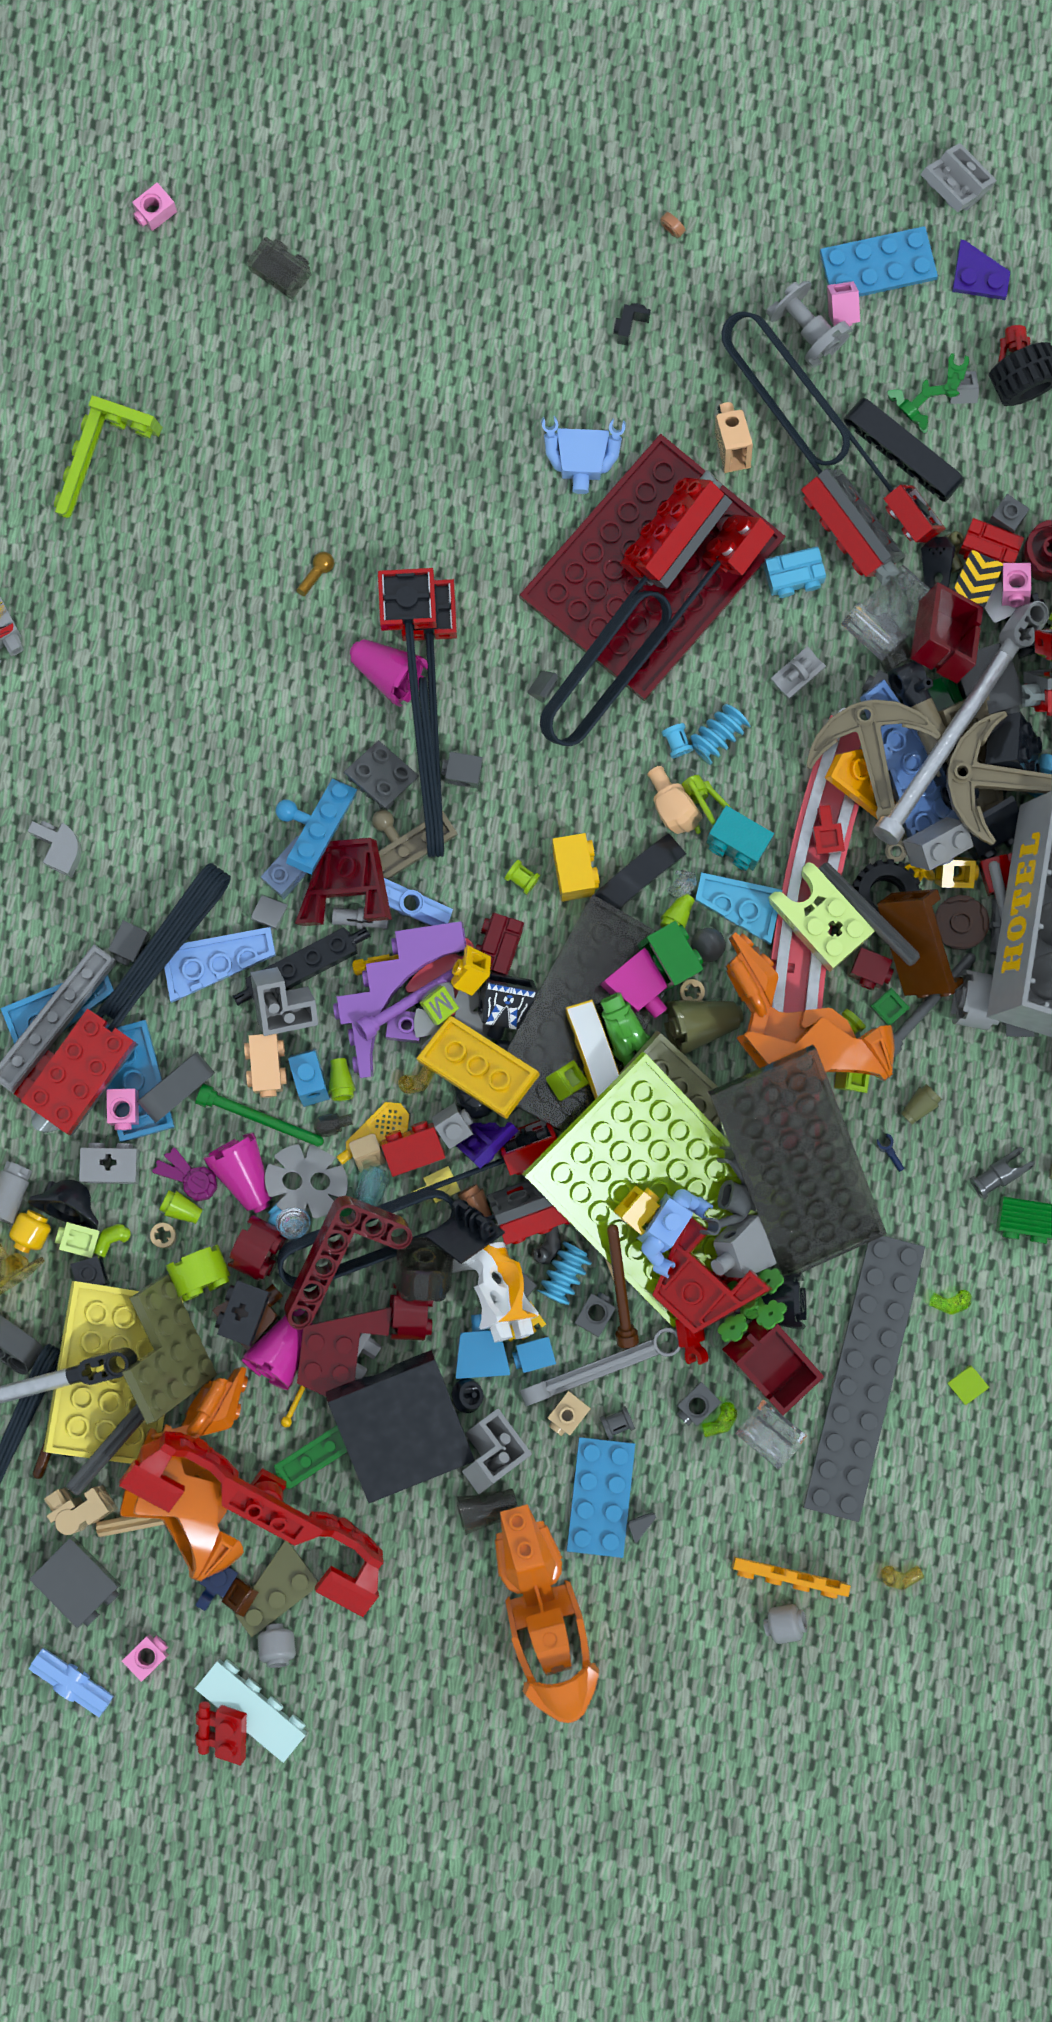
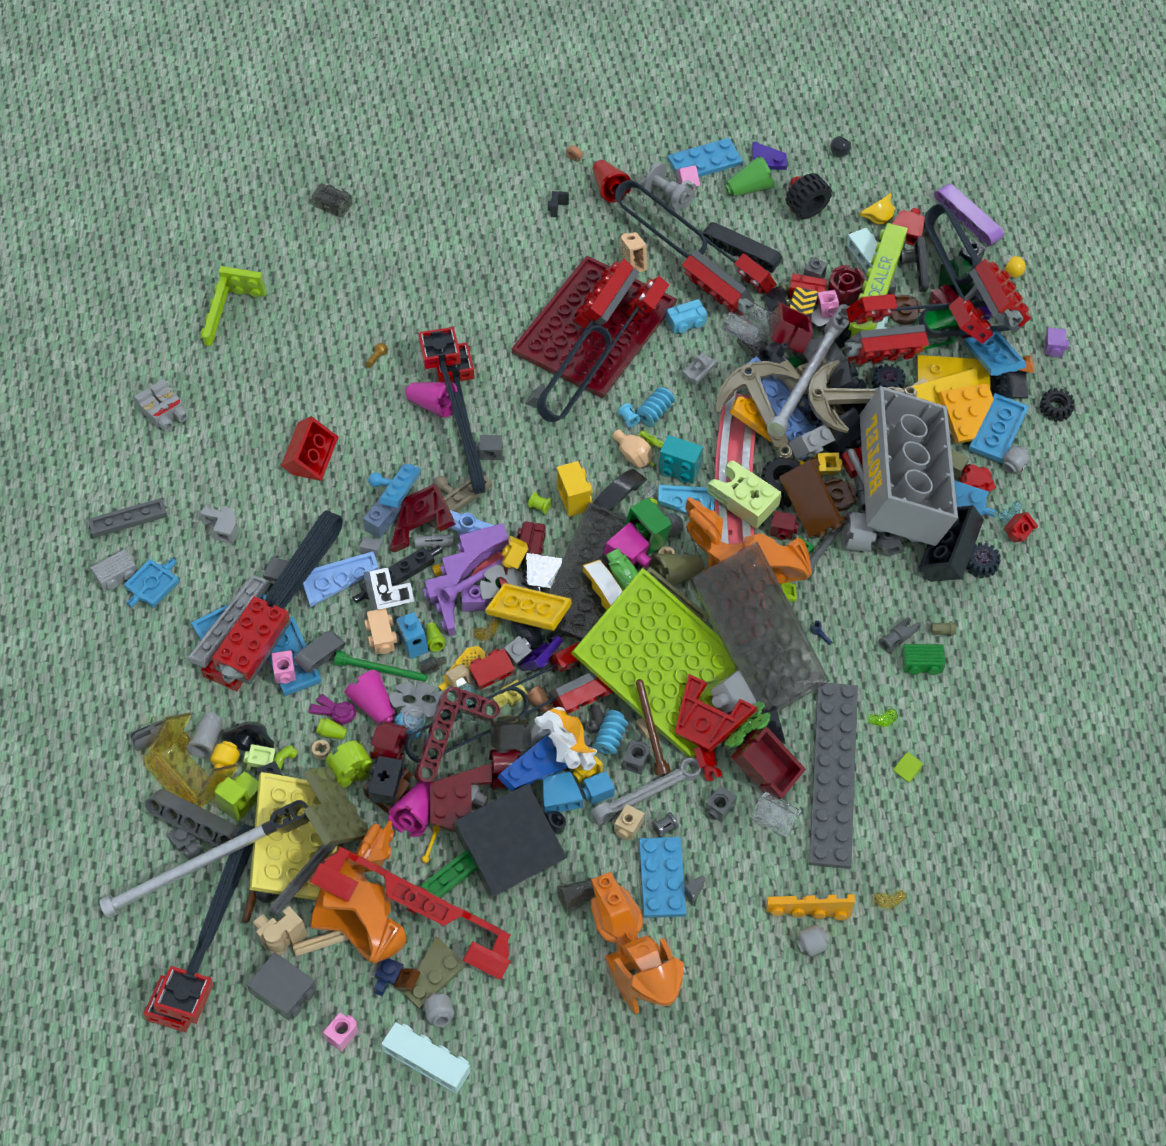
camera: 10 degrees left, 25 degrees down
(44, 1296) = (237, 795): none -> lime brick
(70, 1682) = (286, 1058): light blue piece -> none
(124, 1172) = (271, 715): light grey brick -> none
(153, 196) = (249, 178): bright pink brick -> none
(197, 736) = (309, 449): none -> red slope
(229, 1732) = (412, 1074): red plate -> none
(381, 775) = (434, 459): dark grey hinge -> none
(439, 1005) = (496, 576): lime tile -> none
(445, 1323) = (532, 765): none -> blue wing
(465, 1232) = (538, 701): black hinge -> none
(499, 1451) = (581, 850): light grey brick -> none
(566, 1080) = (590, 610): lime slope -> none
(582, 452) = (538, 270): light blue torso -> none
(638, 1208) = (654, 669): yellow brick -> none
(667, 1226) = (675, 677): light blue torso -> none
(719, 290) = (608, 179): none -> red cone
(724, 1421) = (740, 816): clear neon green arm -> none
(731, 1197) = (719, 661): dark grey piece -> none
(827, 836) = (738, 449): red plate -> none
(872, 917) = (784, 488): dark grey axle -> none
(921, 1104) = (835, 600): olive cone -> none
(941, 320) = (751, 178): none -> bright green cone
(955, 375) = (741, 226): green piece -> none
(958, 178) = (744, 111): light grey brick -> none
(968, 389) = (771, 214): light grey slope -> none

